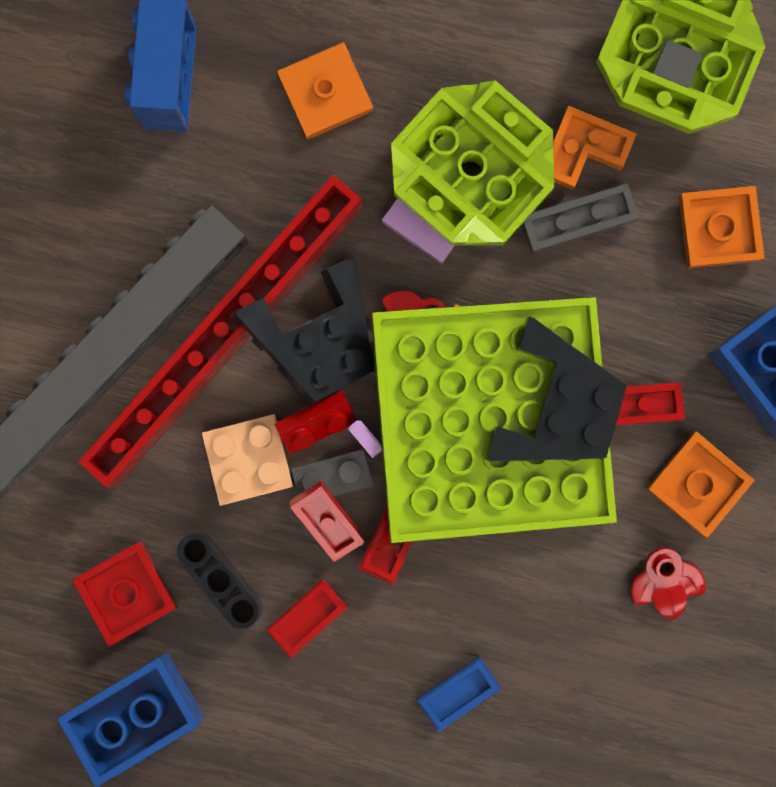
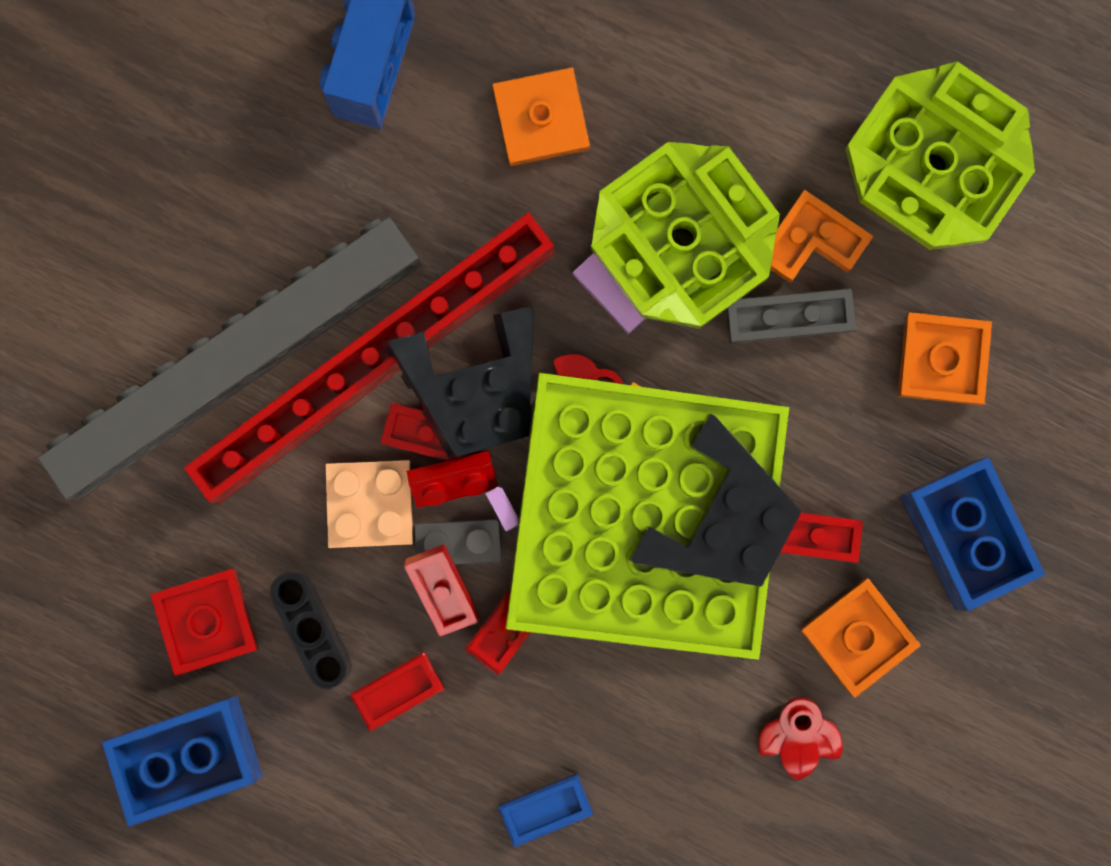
camera: 10 degrees right, 0 degrees up
(272, 389) = (410, 431): none -> red plate
(677, 63) = (933, 170): dark grey tile -> none

